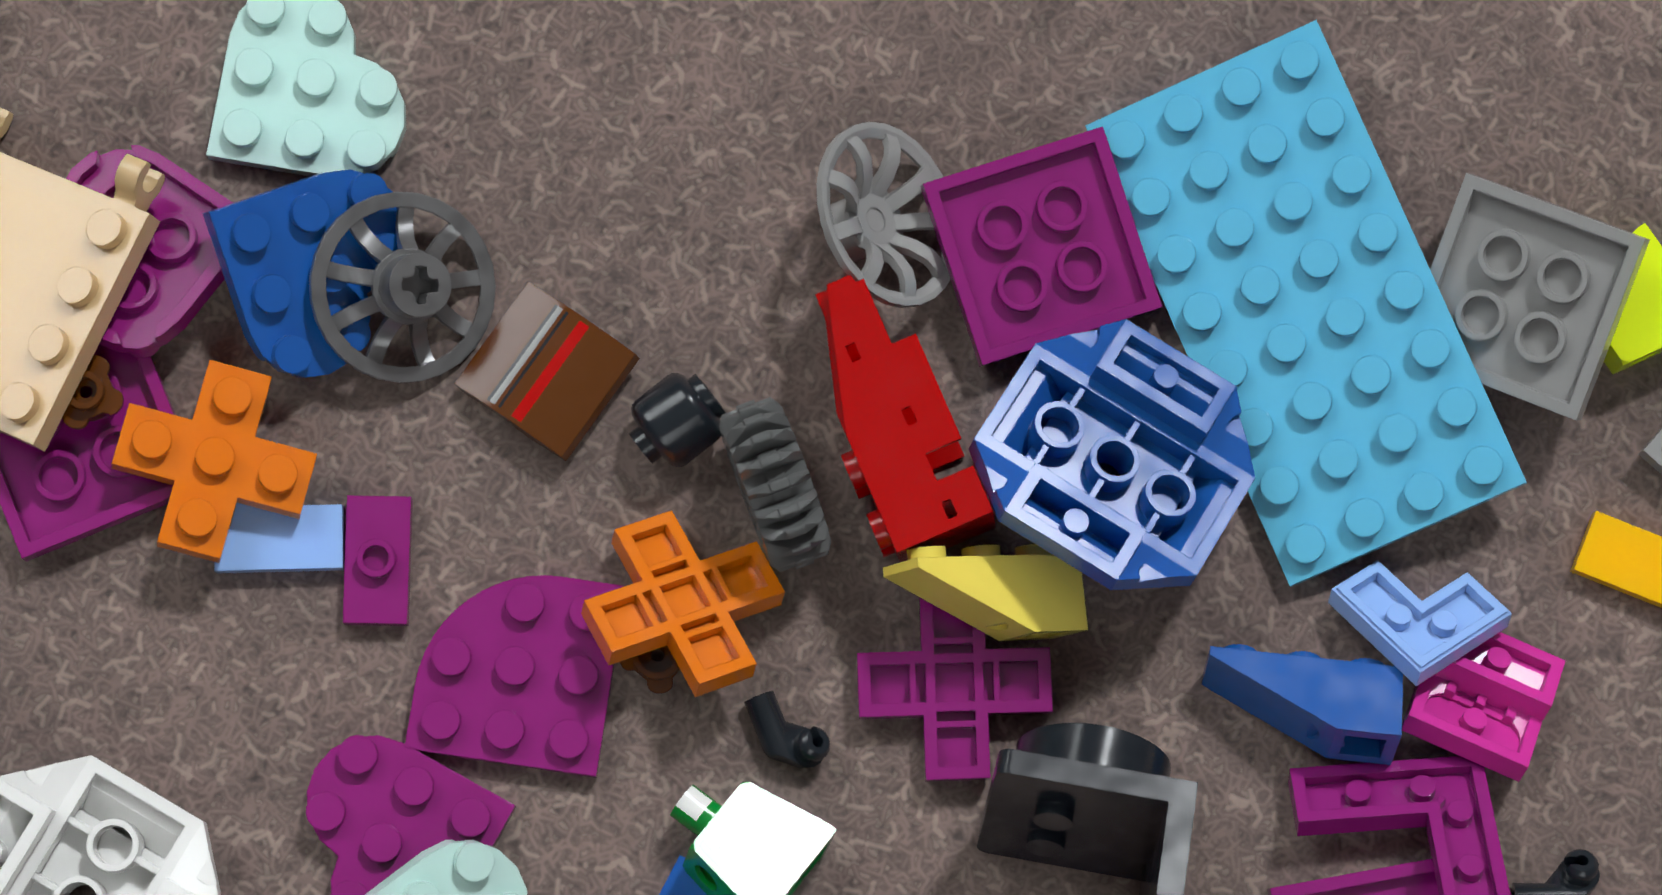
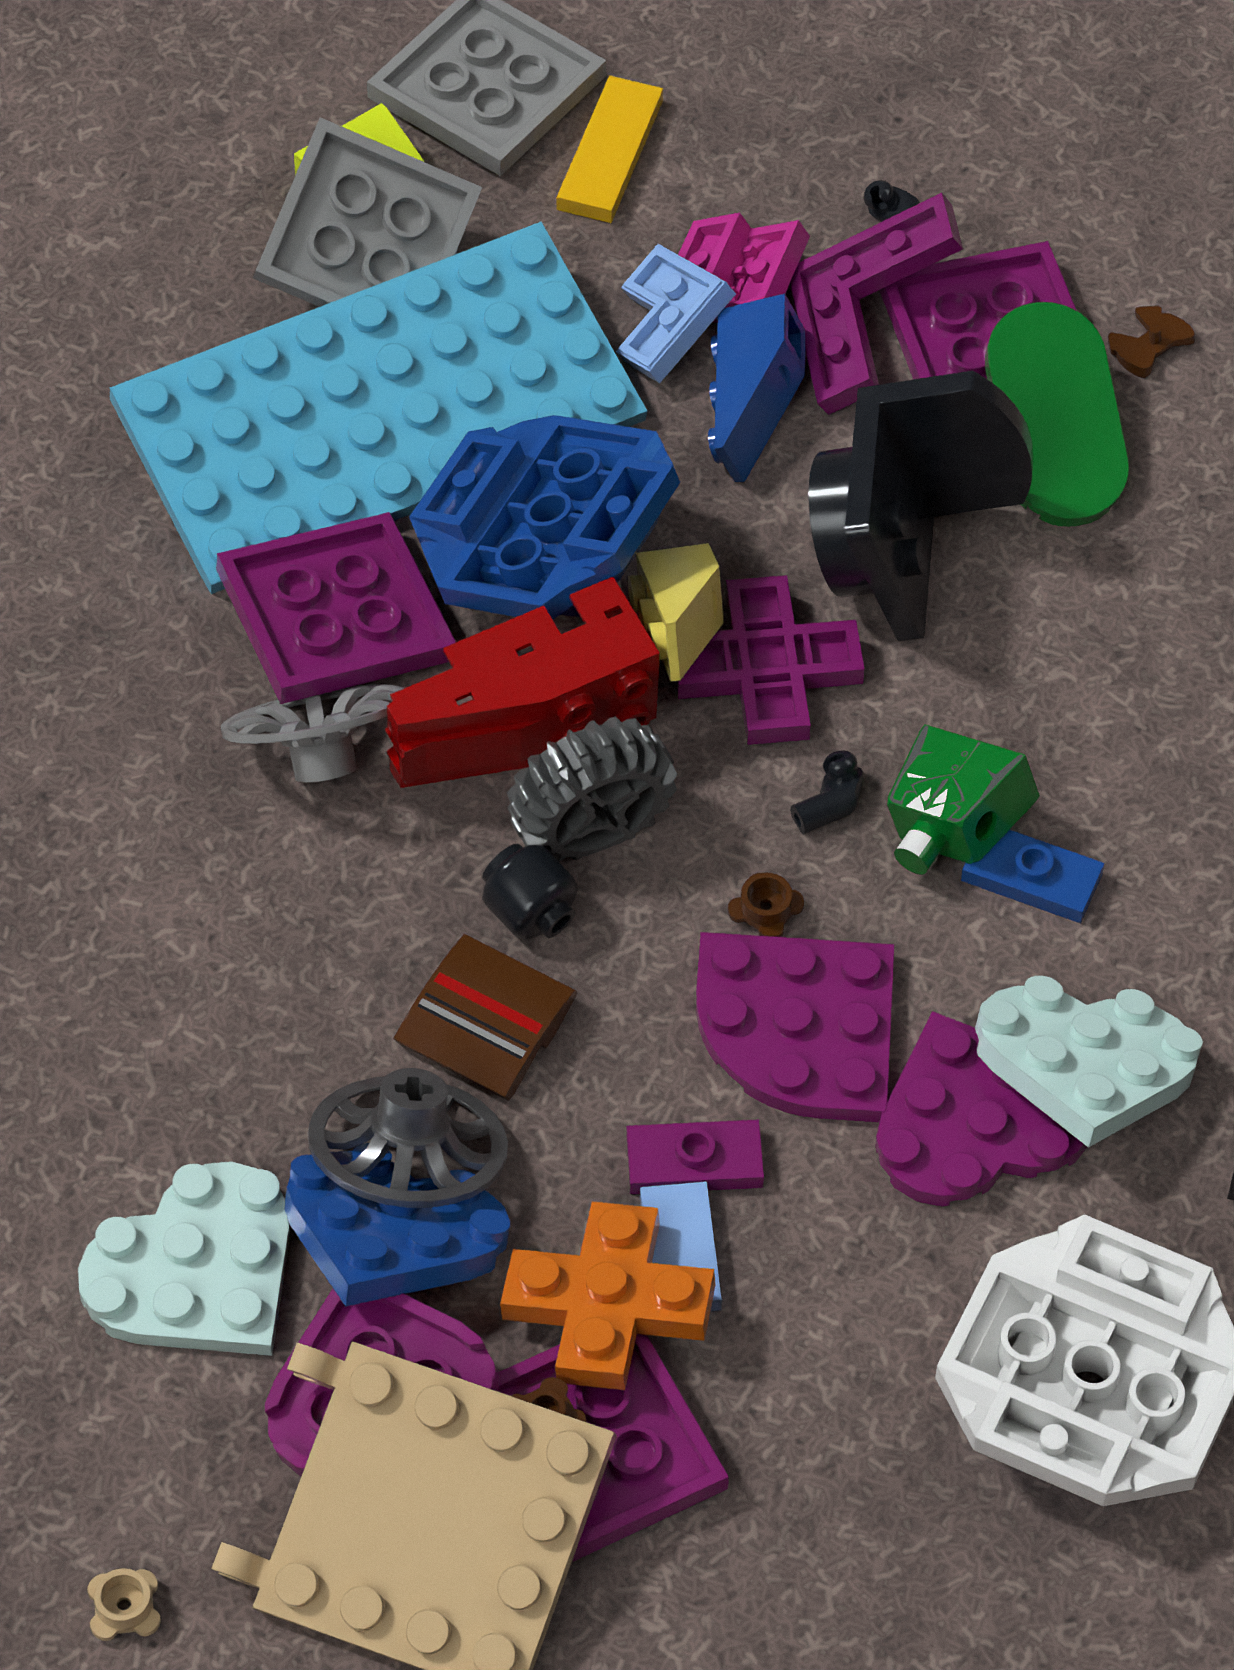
camera: 90 degrees left, 25 degrees down
(683, 603) = (716, 867): orange plate -> none

